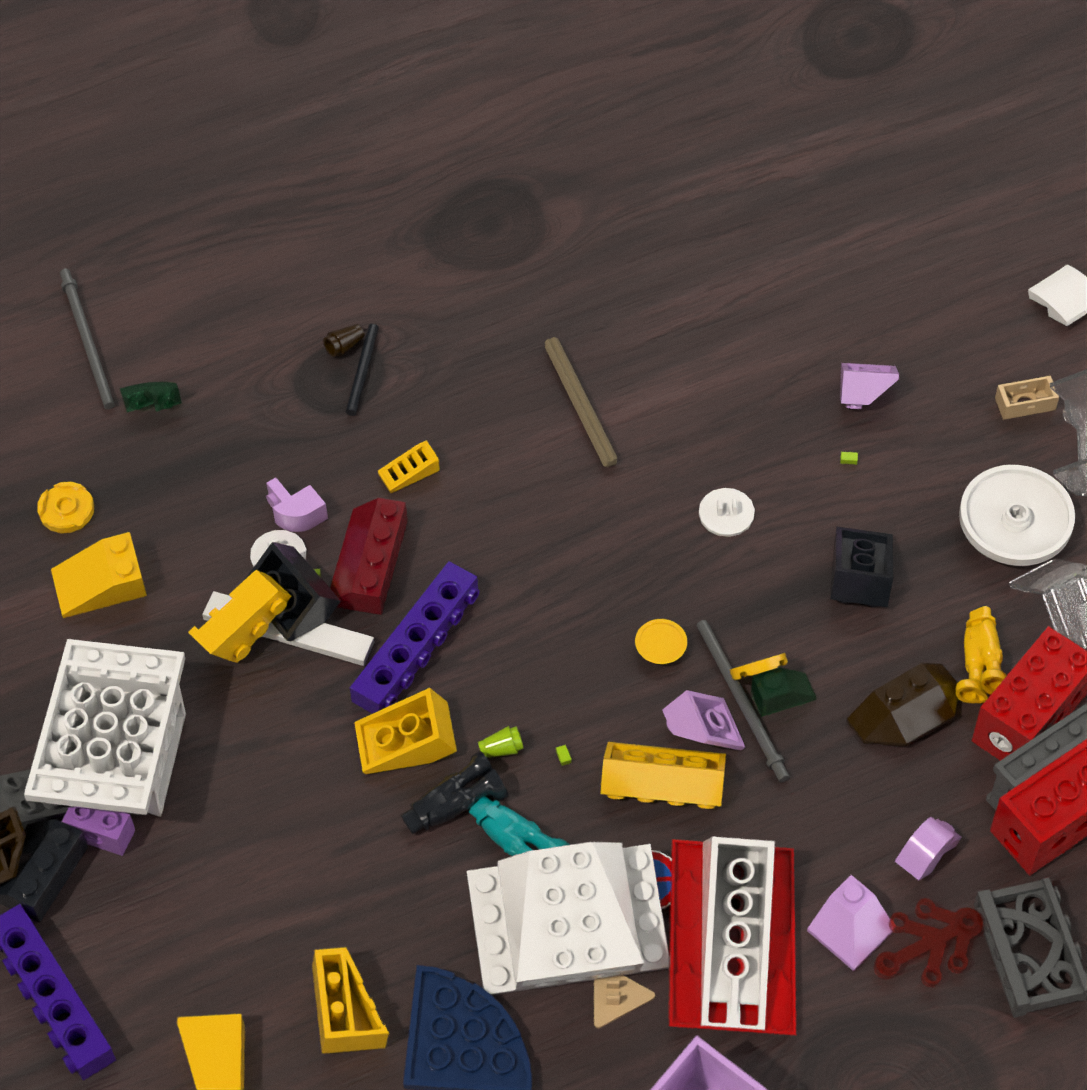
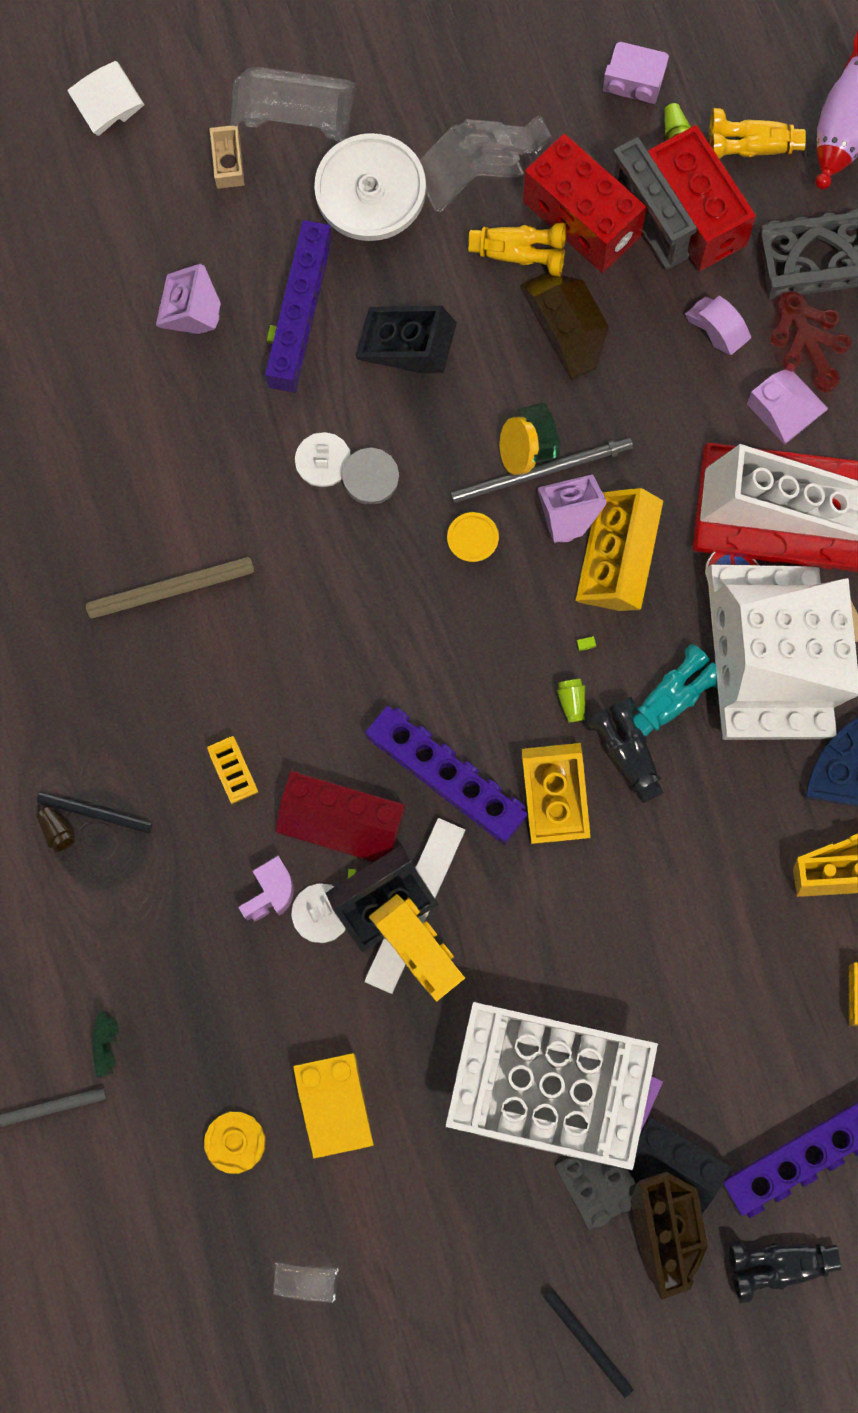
camera: 80 degrees left, 20 degrees up
(713, 550) = (370, 476): none -> light grey tile
(879, 470) = (299, 306): none -> dark purple brick

